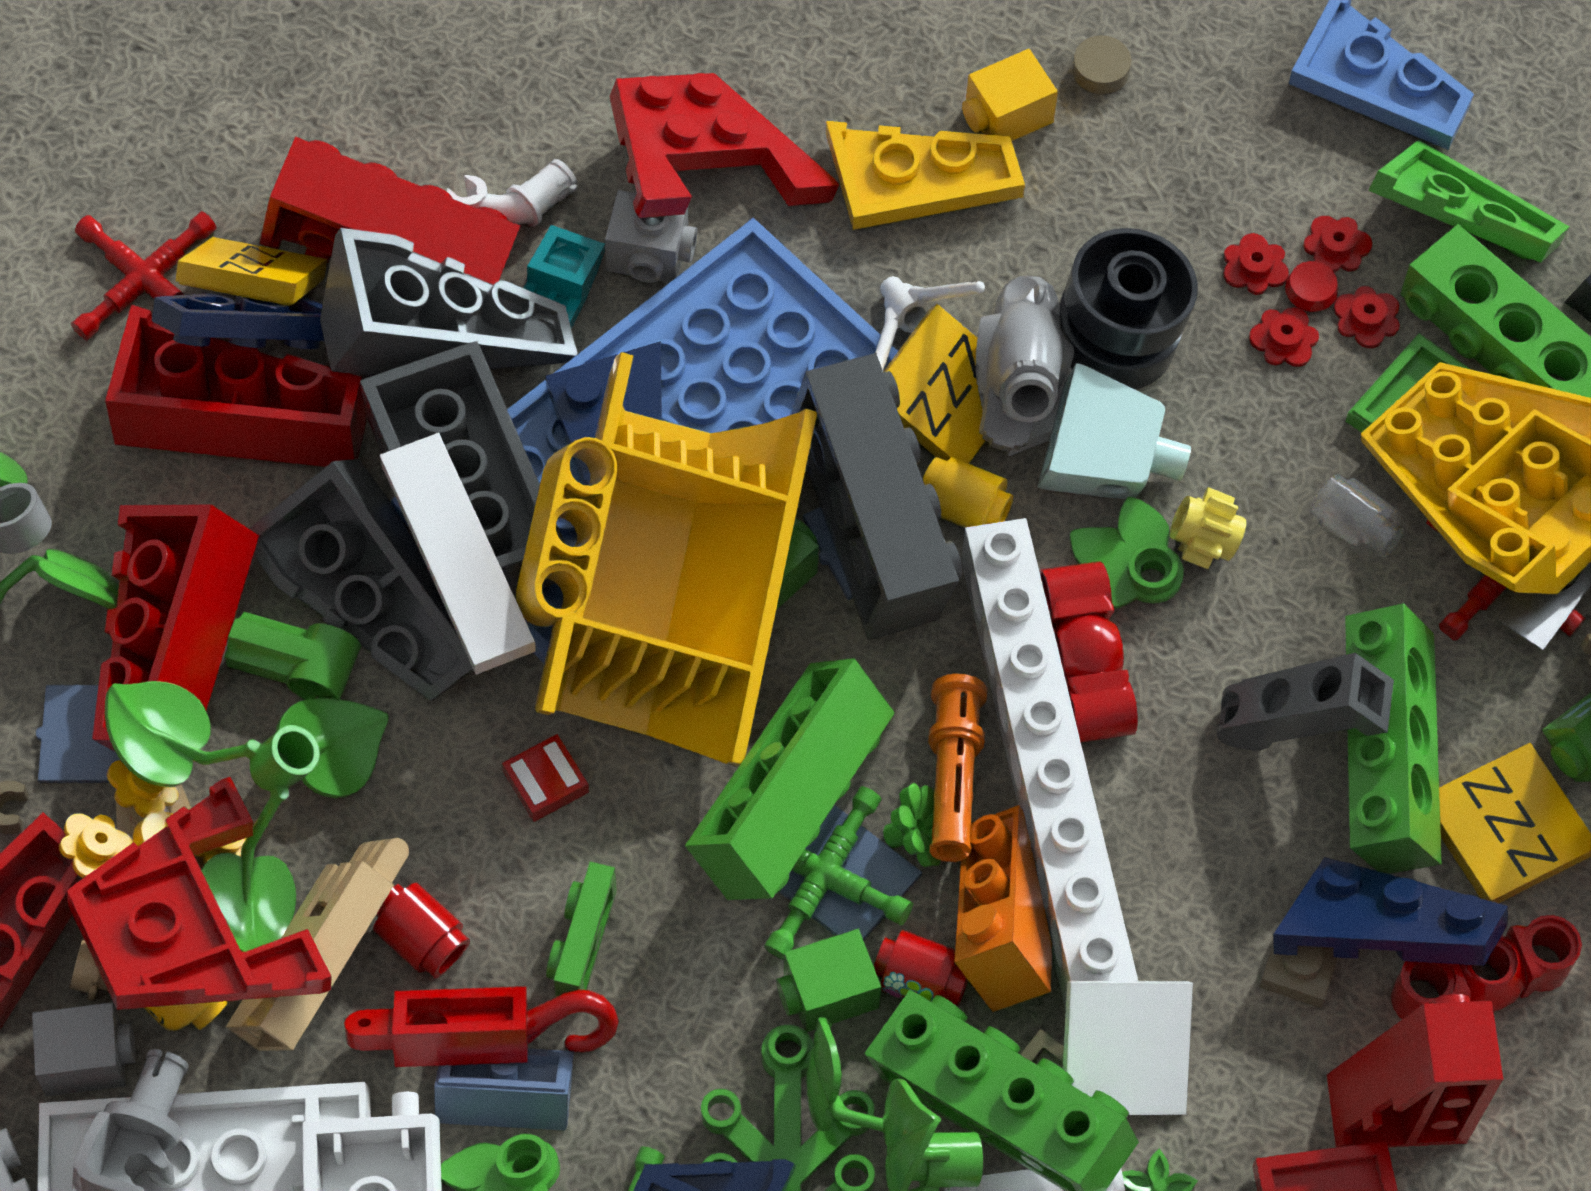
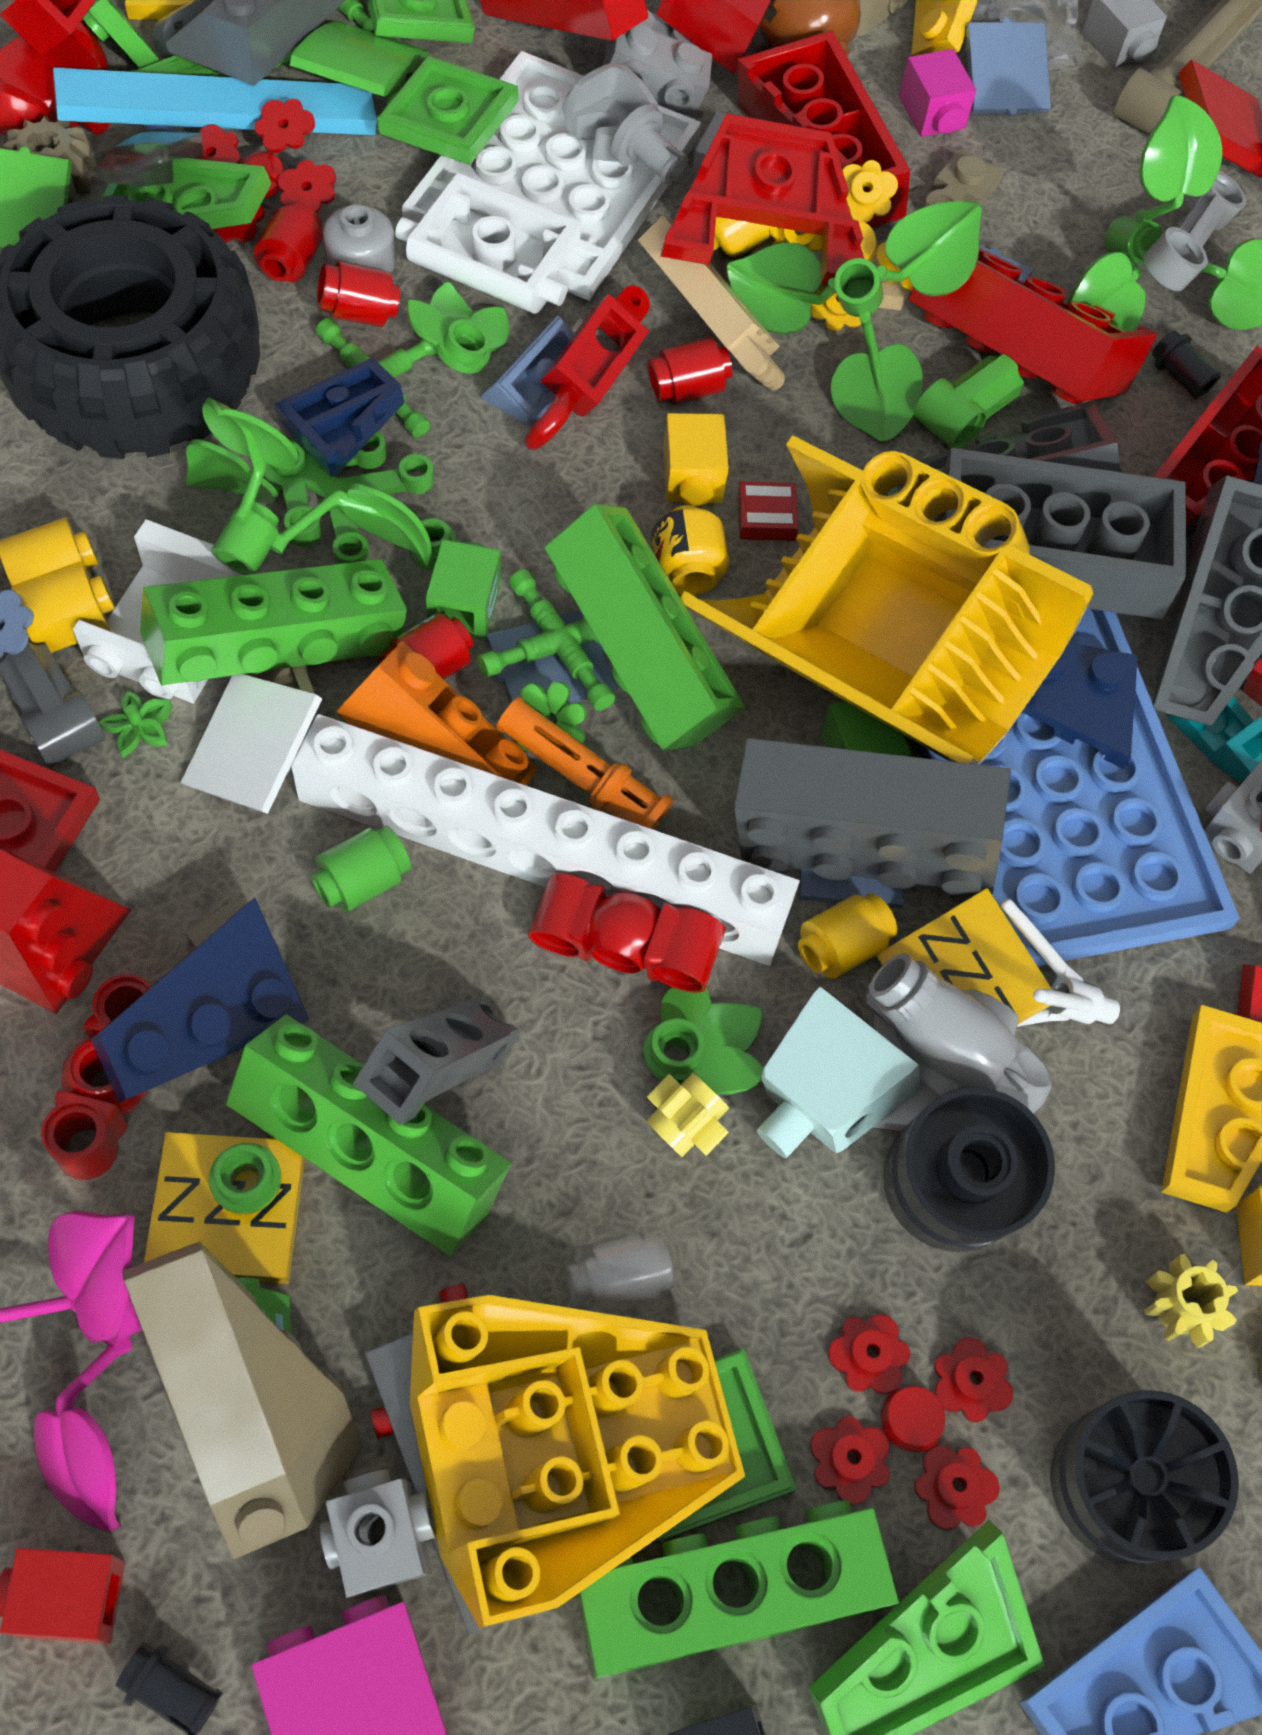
camera: 115 degrees right, 0 degrees up
(110, 487) = (1185, 364): none -> black pin
(457, 553) = (987, 456): white tile -> none
(537, 861) = (695, 458): none -> yellow brick
(589, 909) = (615, 459): bright green plate -> none
(652, 810) = (691, 549): none -> yellow head
(1103, 141) = (1191, 1318): none -> light yellow gear
(1171, 896) = (360, 868): none -> bright green brick
(1267, 116) = (1145, 1478): none -> black wheel
(1492, 791) = (233, 1162): none -> bright green plate

